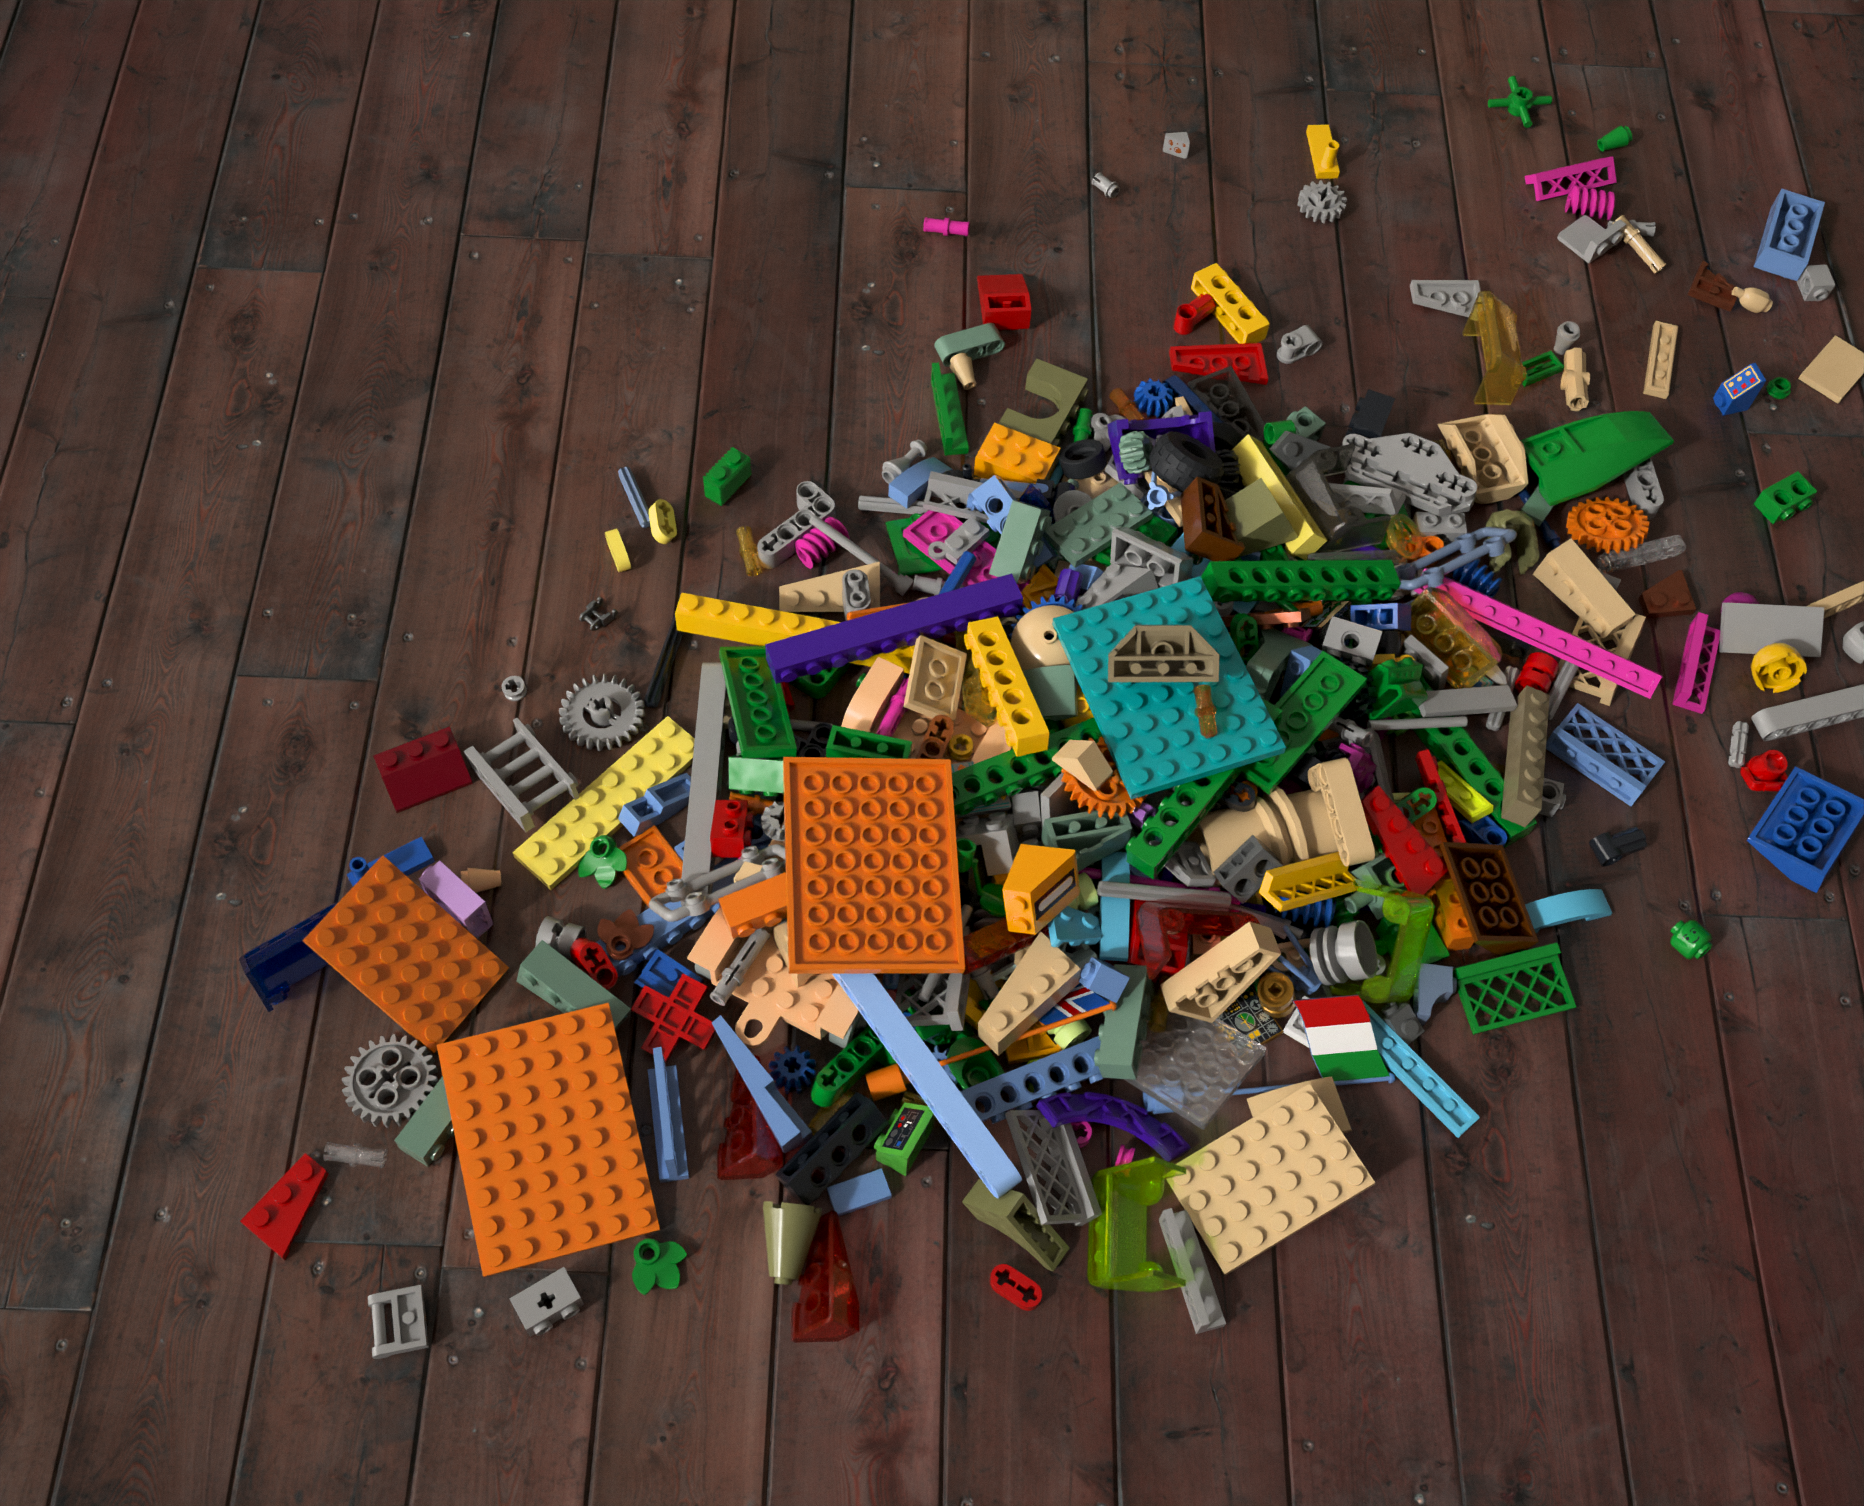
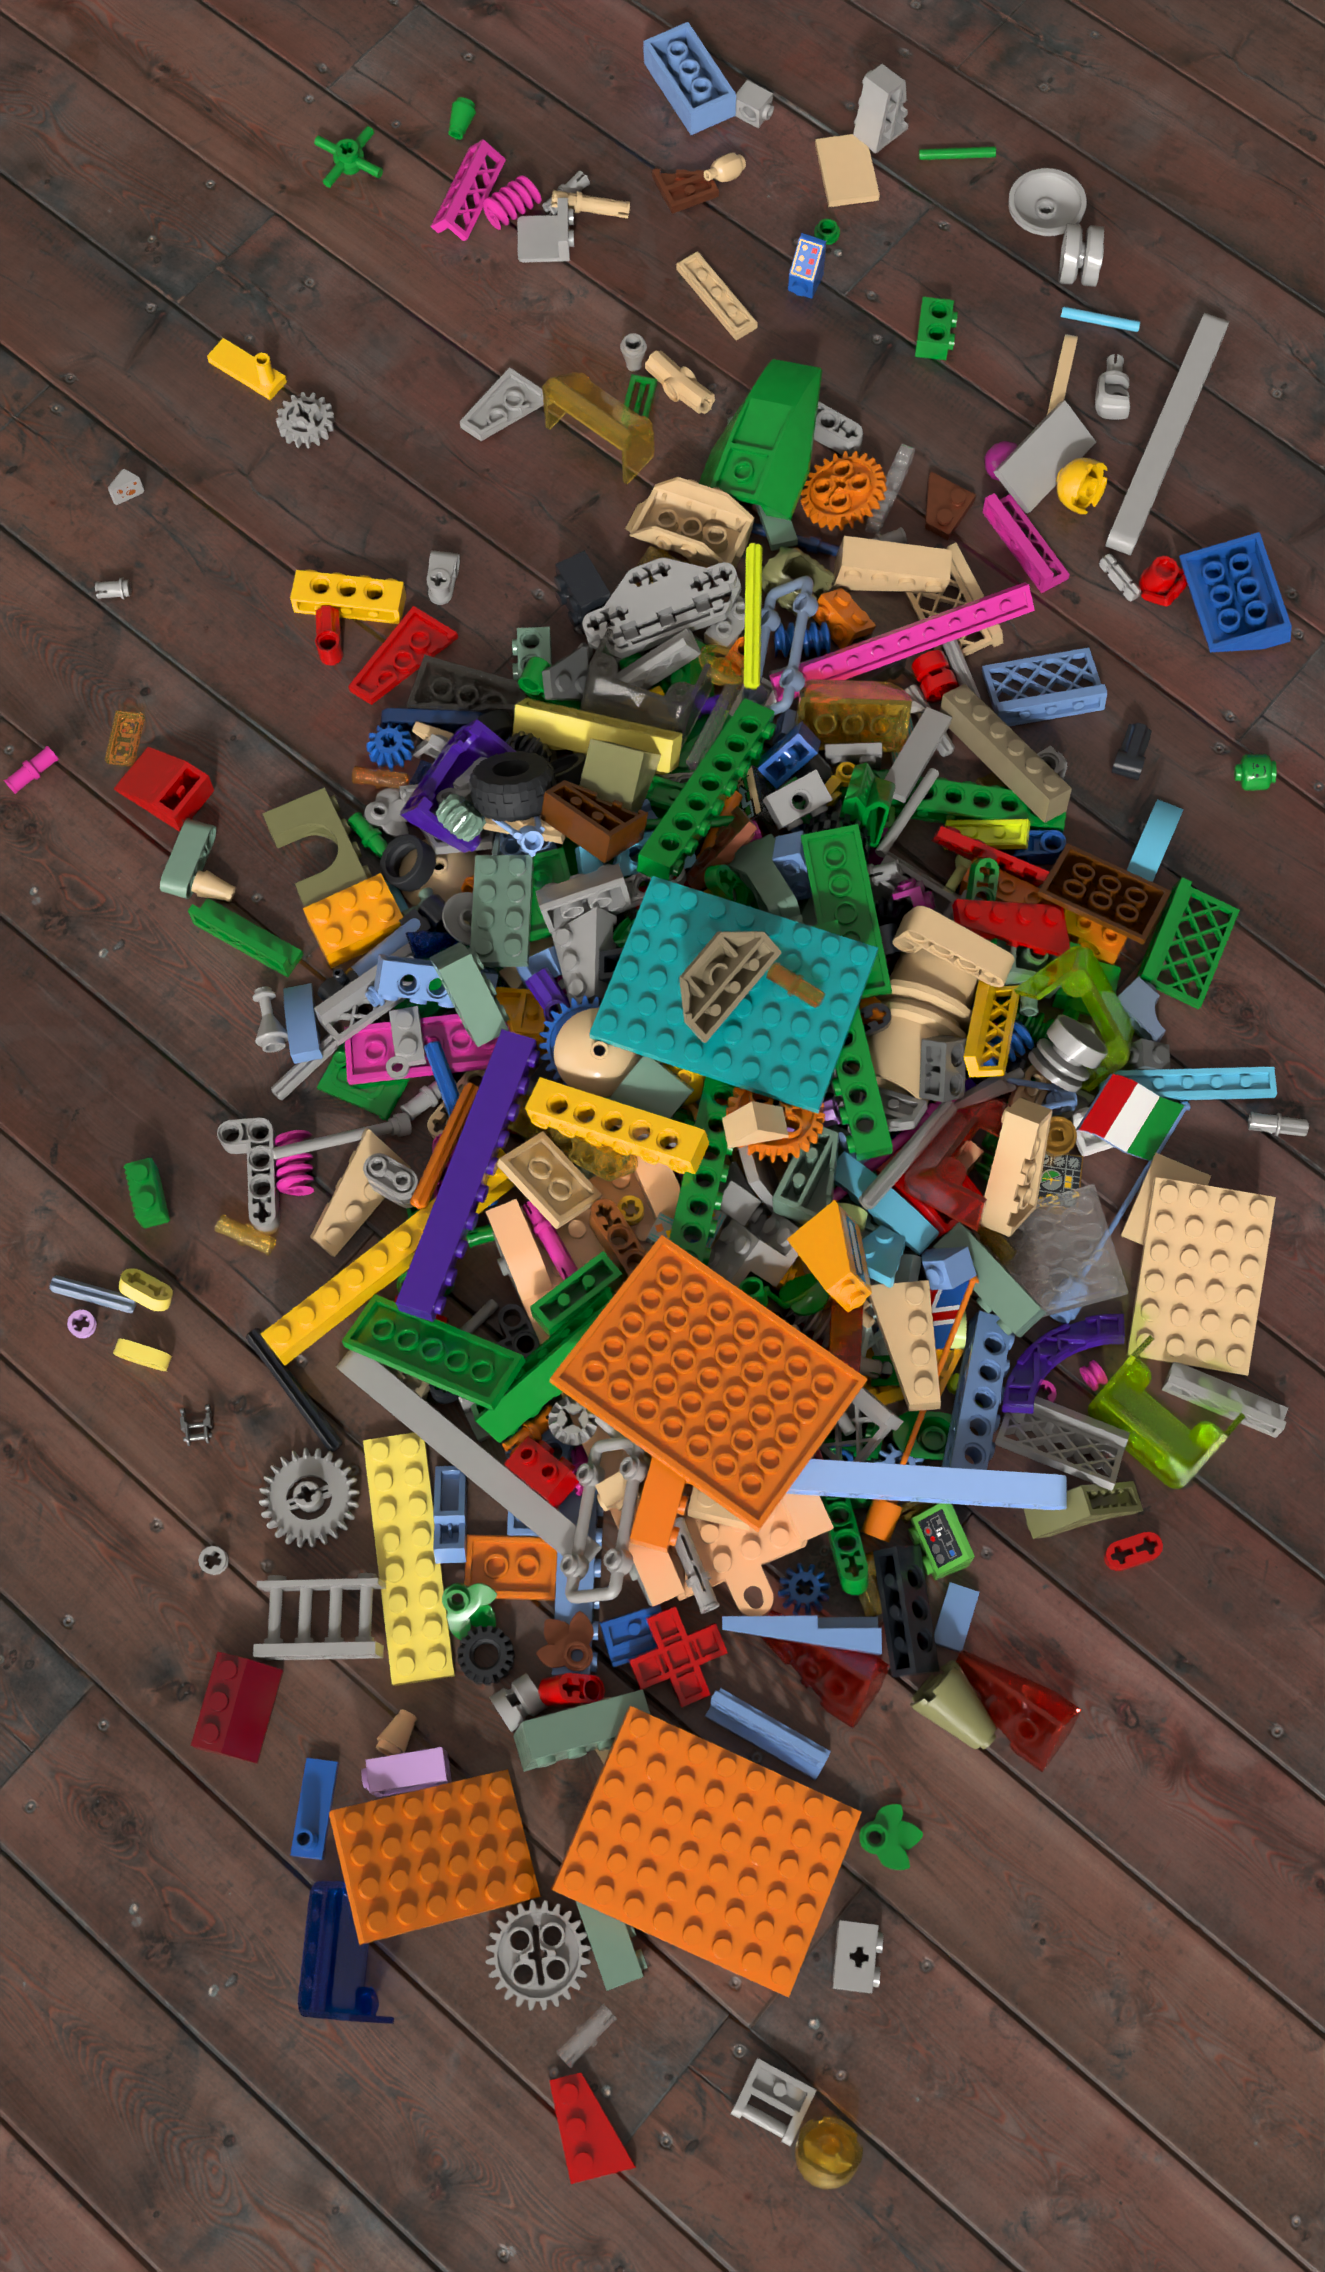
camera: 45 degrees left, 10 degrees up
(382, 1384) = (828, 2153): none -> clear yellow cylinder
(574, 882) = (482, 1636): none -> black tyre
(615, 500) = (78, 1316): none -> lavender bush
(1016, 259) = (124, 738): none -> clear yellow tile
(1439, 1154) = (1277, 1124): none -> light grey axle
(1456, 529) = (753, 603): none -> neon yellow axle
(1519, 588) = (843, 617): none -> orange bracket

